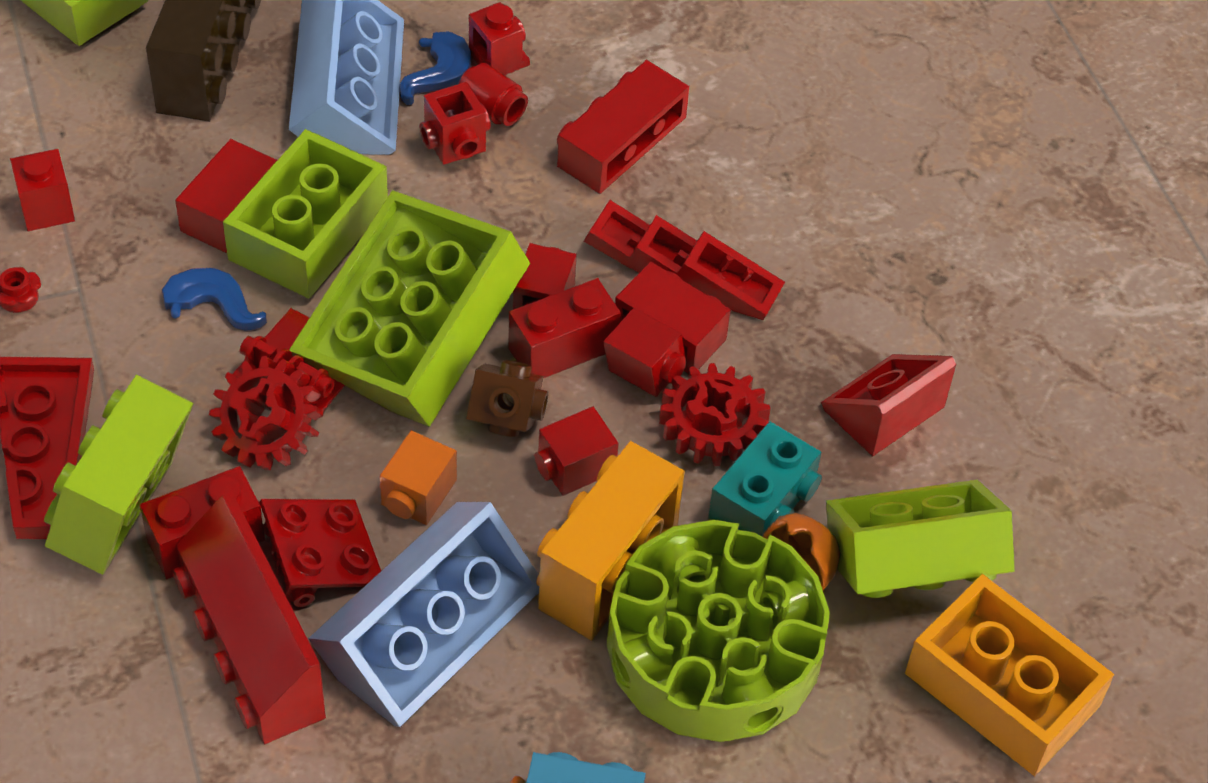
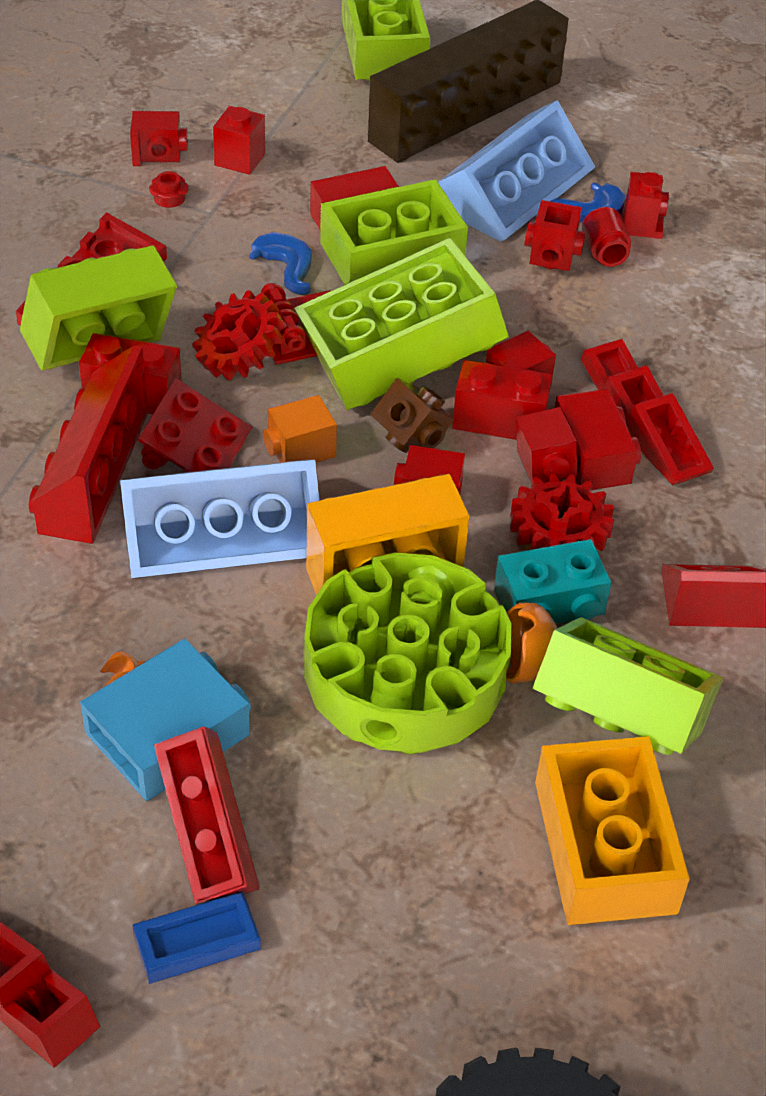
camera: 40 degrees right, 5 degrees down
(622, 126) = (686, 303): red brick -> none

